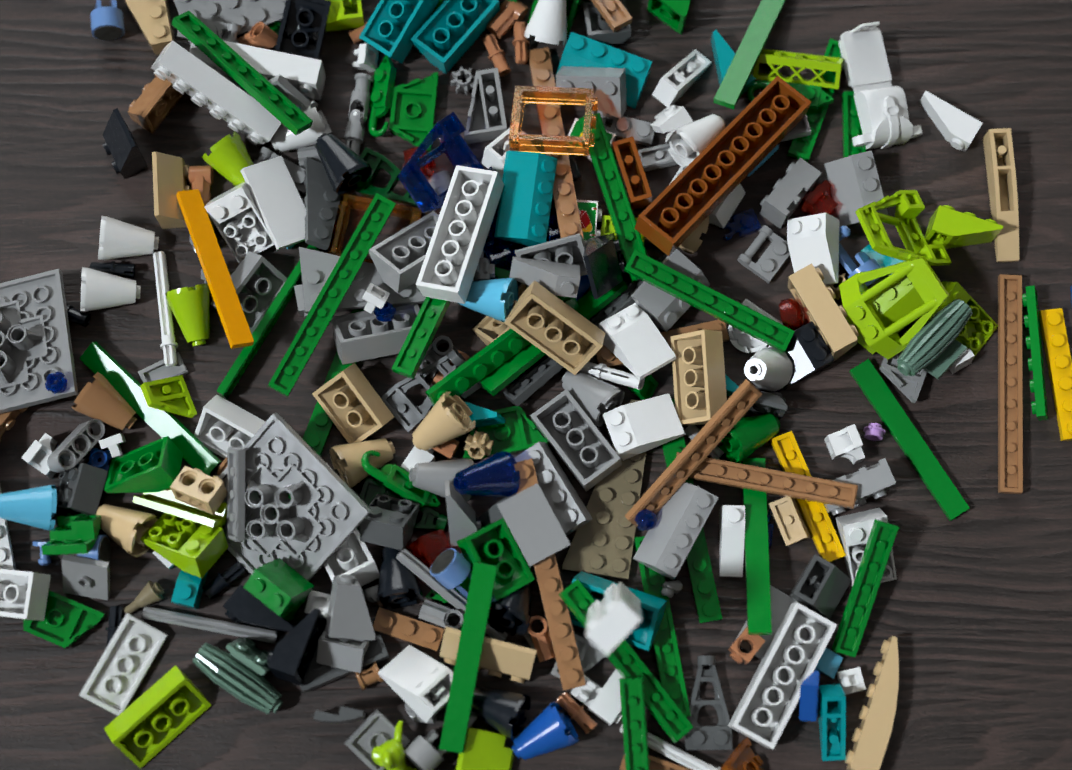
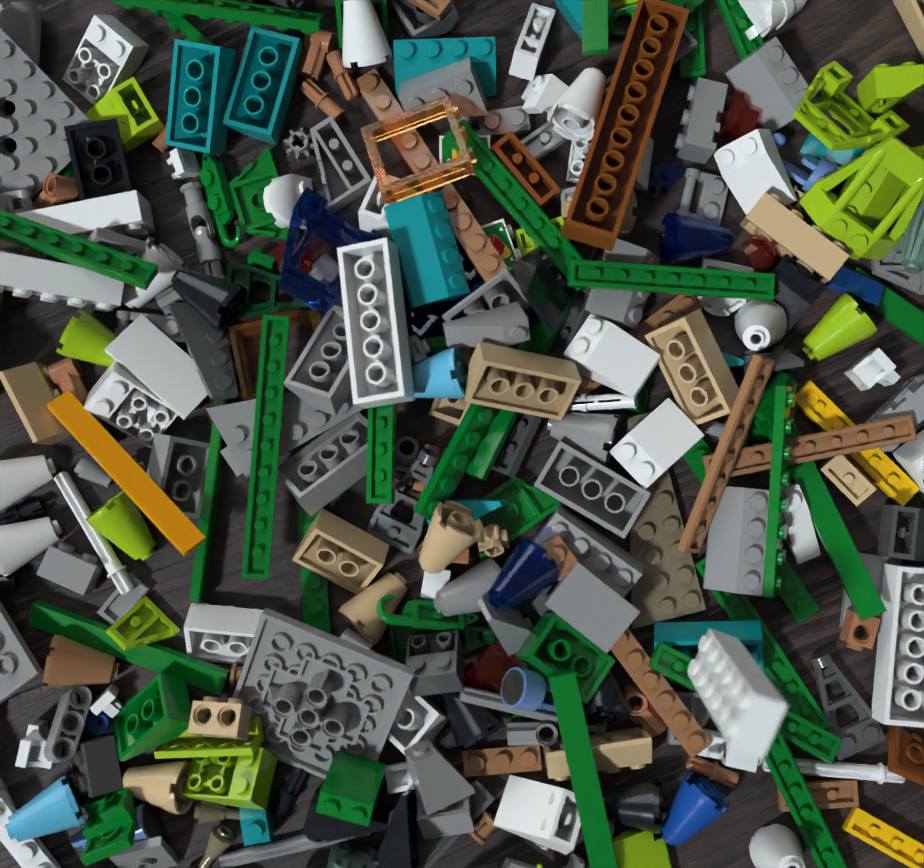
camera: 20 degrees left, 10 degrees up
(60, 386) = (19, 673): clear blue plate -> none
(134, 328) = (70, 568): none -> light grey brick
(154, 567) = (212, 812): none -> dark tan cone
(186, 261) = (92, 471): none -> light grey cone
(236, 494) = (261, 708): light grey tile -> none
(375, 297) = (313, 430): white tile -> none
(386, 313) = (329, 439): clear blue plate -> none
(393, 155) = (262, 261): none -> green tile
(432, 111) = (282, 196): none -> white slope
(646, 520) = (702, 544): clear blue plate -> none
(671, 588) = (755, 604): light grey arm -> none
(723, 500) = (779, 480): none -> green plate
(743, 280) = (691, 238): none -> clear blue cone
(830, 399) = (838, 329): none -> lime cone
(860, 372) = (857, 286): none -> blue slope
(874, 432) = (894, 343): lavender plate -> none

